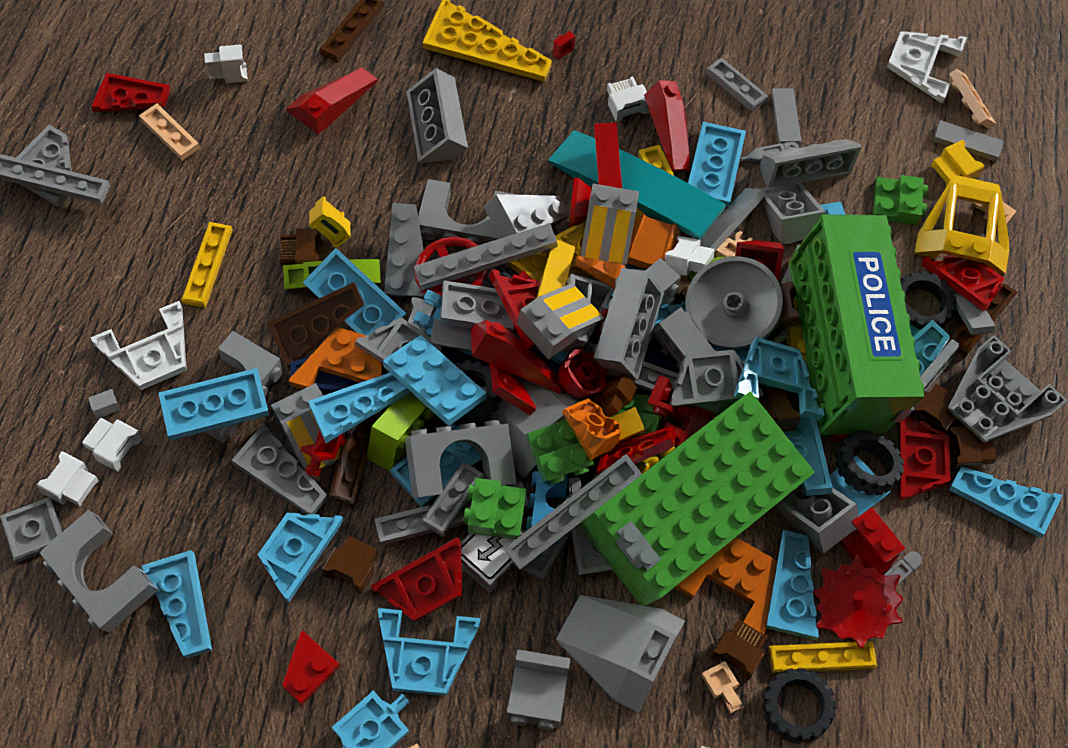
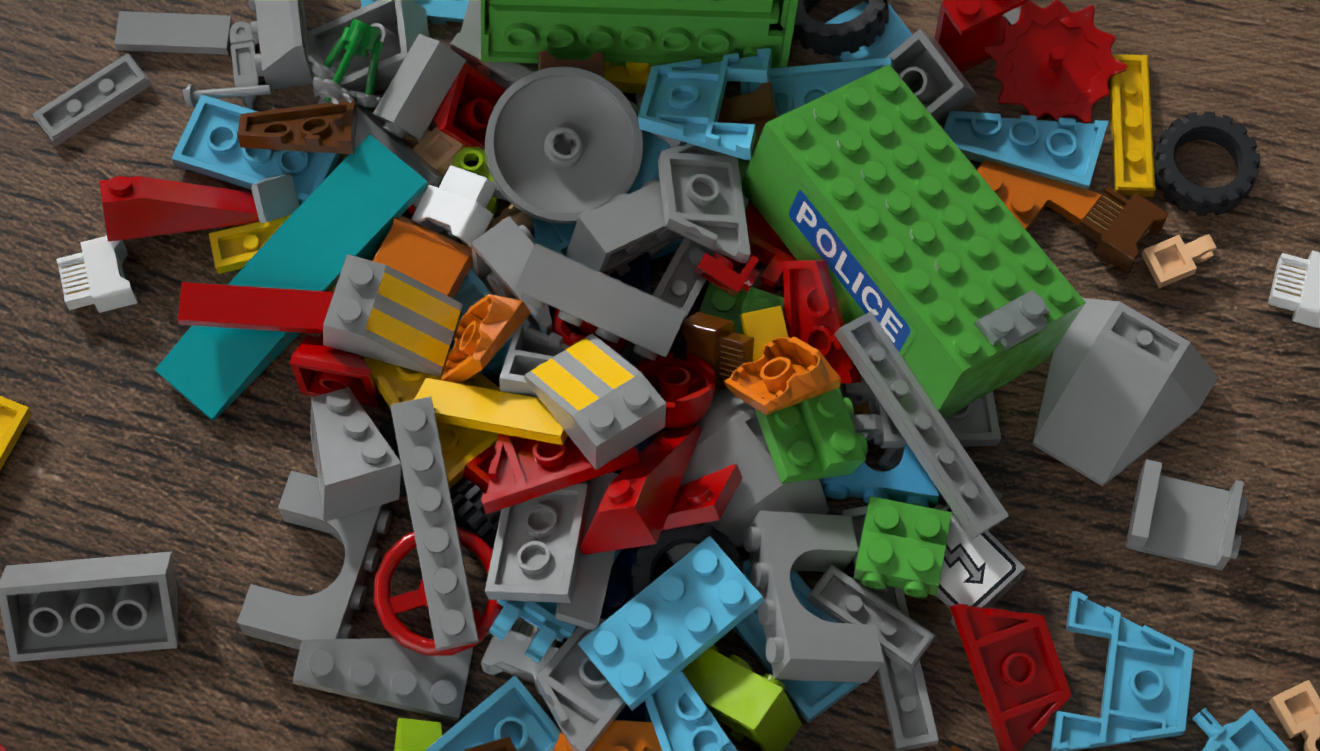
camera: 80 degrees left, 5 degrees up
(683, 168) = (275, 197): none -> light grey slope
(726, 176) = (301, 128): none -> reddish brown wing
(749, 128) = (191, 95): none -> light grey piece
(763, 229) = (418, 88): none -> light grey brick
(784, 192) = (358, 40): none -> green plant

